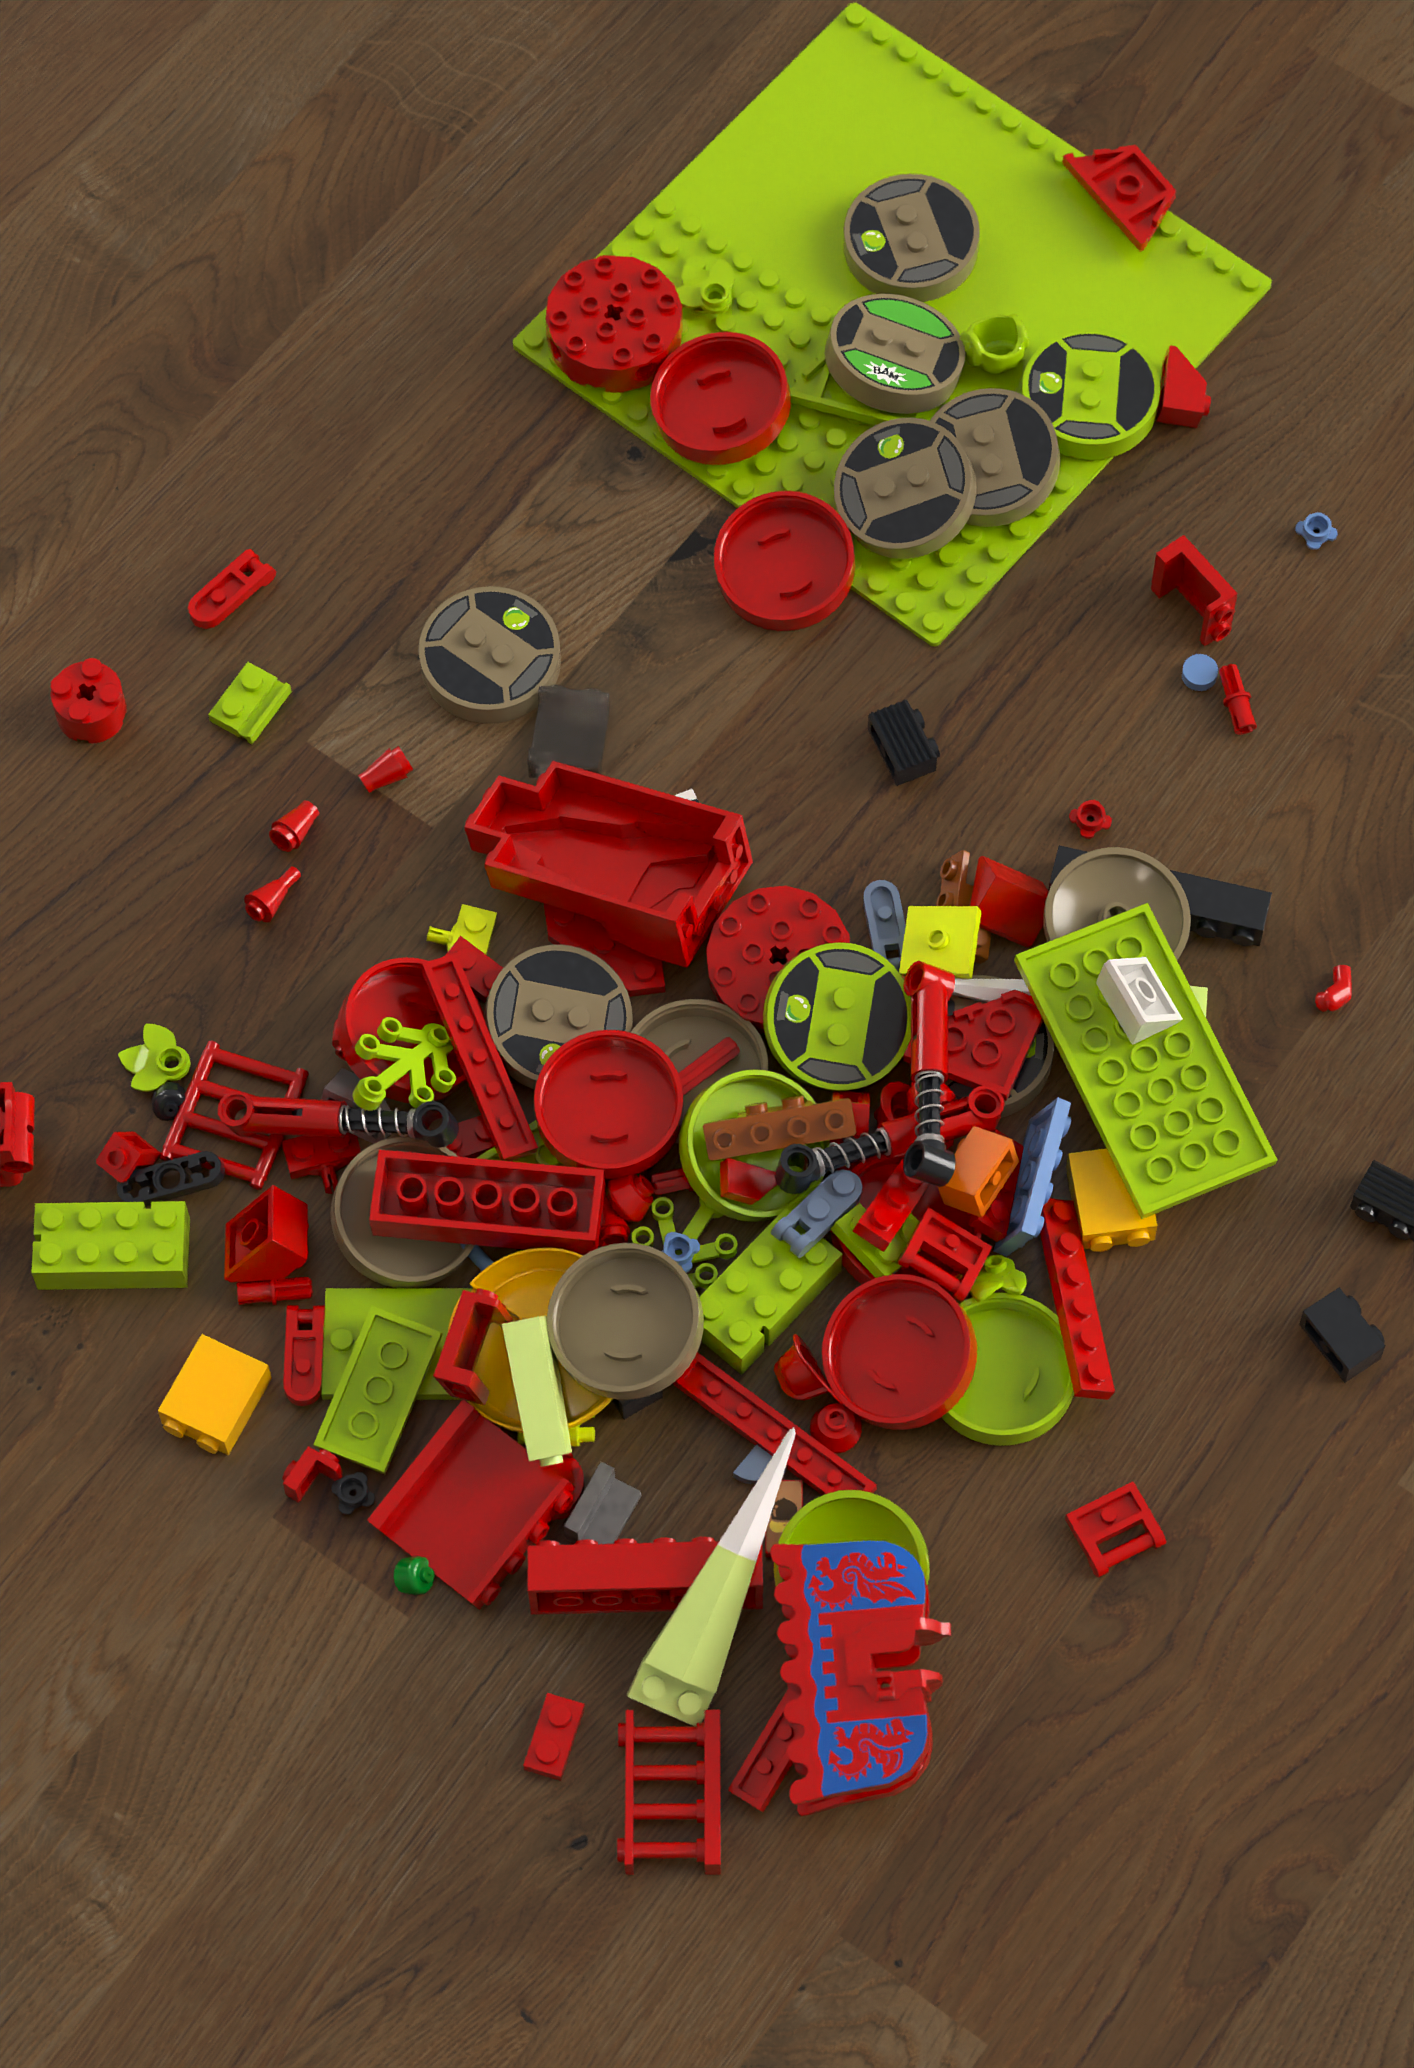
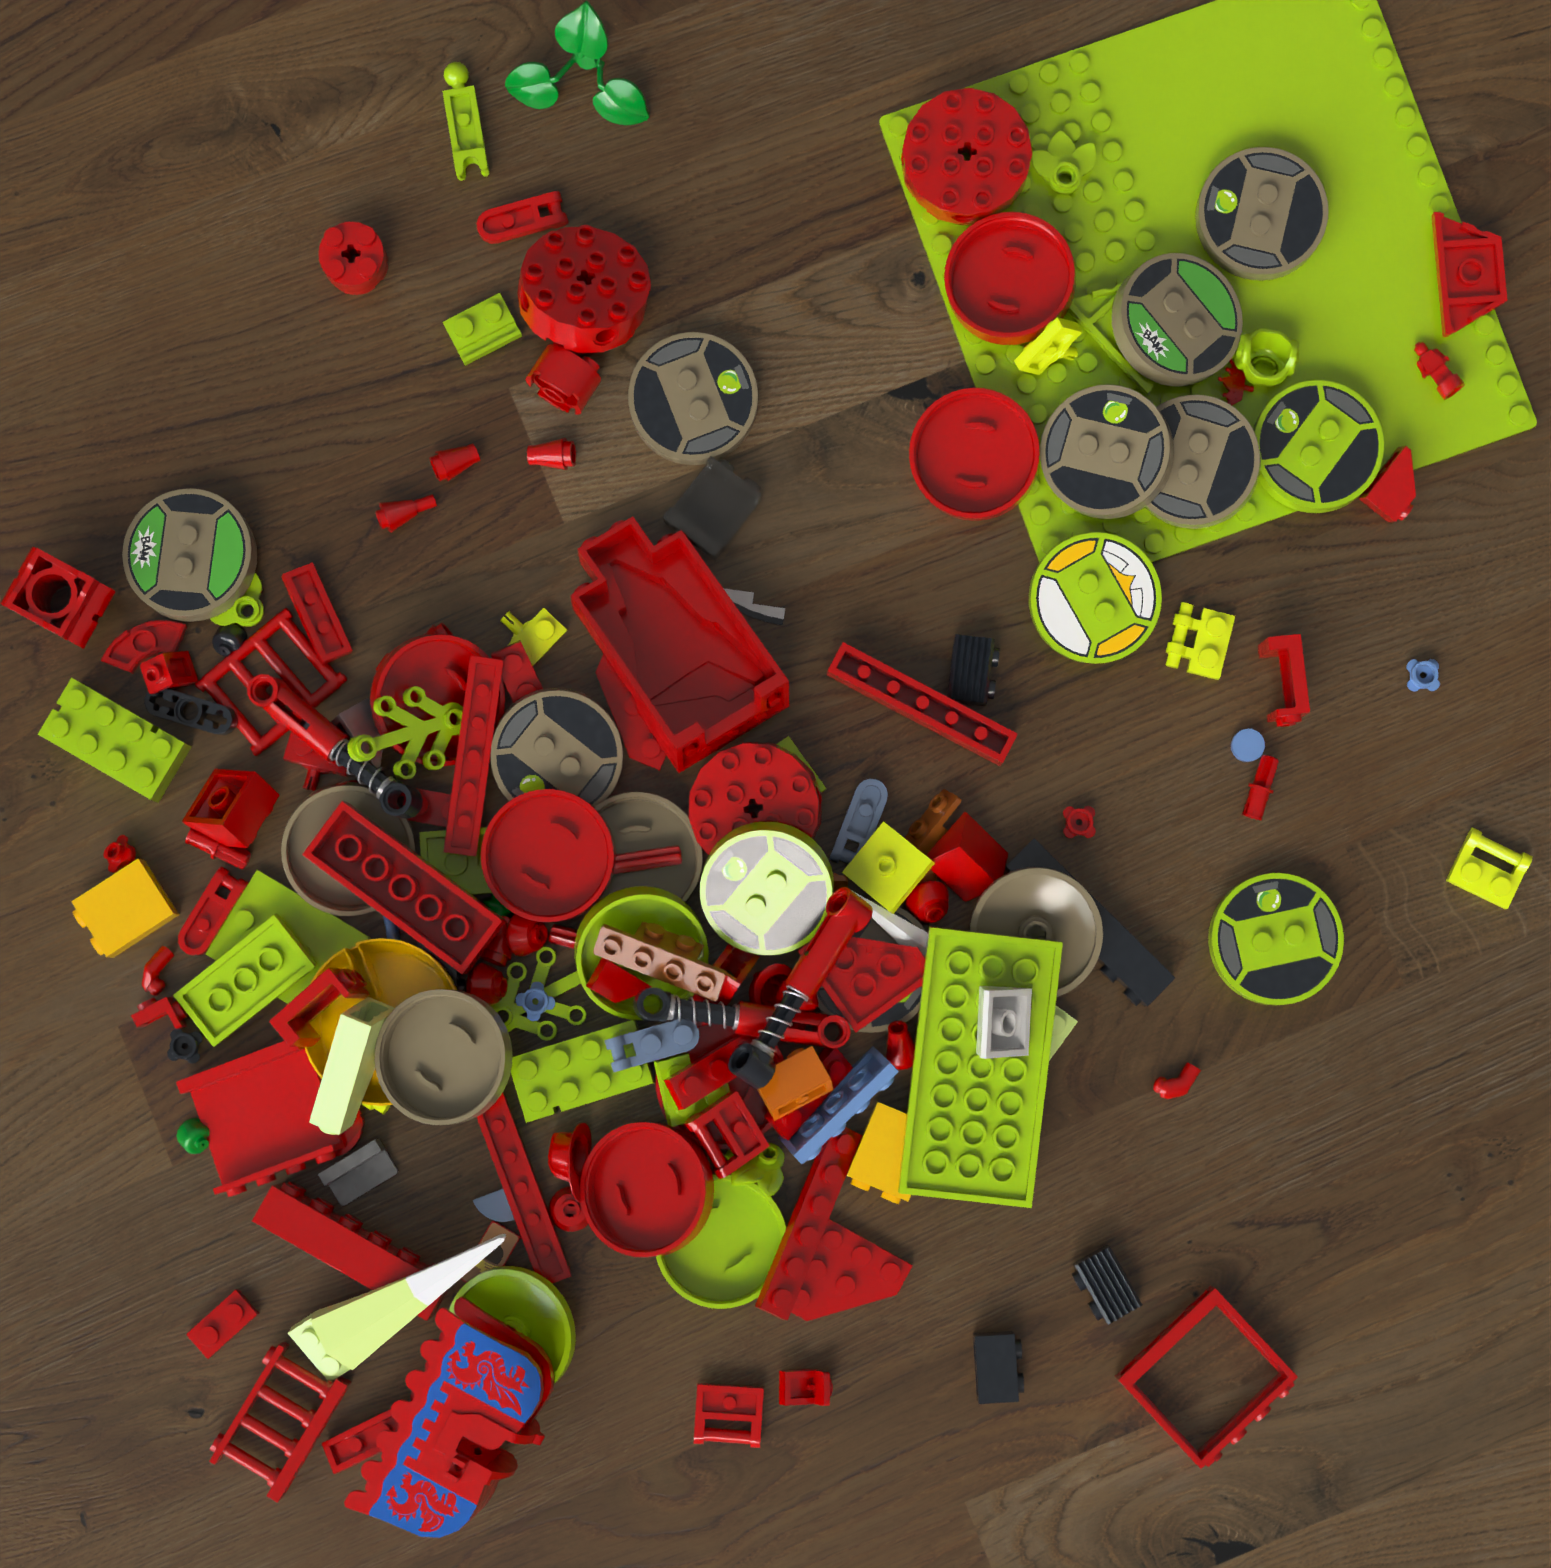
camera: 30 degrees right, 20 degrees up
(79, 1152) = (142, 642): none -> red tile
(85, 1040) = (189, 555): none -> brick
(124, 539) = (464, 121): none -> lime plate
(177, 1348) = (119, 854): none -> red plate
(199, 387) = (585, 37): none -> green plant
(243, 1027) = (316, 613): none -> red plate
(276, 1437) = (152, 971): none -> red arm
(330, 604) = (583, 289): none -> red brick
(357, 694) = (564, 378): none -> red brick
(794, 431) = (1050, 346): none -> neon yellow plate
(877, 791) = (921, 704): none -> red brick
(975, 620) = (1095, 598): none -> piece
(979, 380) = (1234, 384): none -> red piece
(996, 956) = (928, 901): none -> red cone
(1051, 1087) = (900, 1046): none -> red cone
(1106, 607) = (1209, 645): none -> neon yellow plate
(1145, 1335) = (848, 1274): none -> red plate
(1148, 277) = (1433, 364): none -> red piece
(1173, 1458) = (805, 1387): none -> red bracket
(1340, 817) = (1276, 939): none -> piece

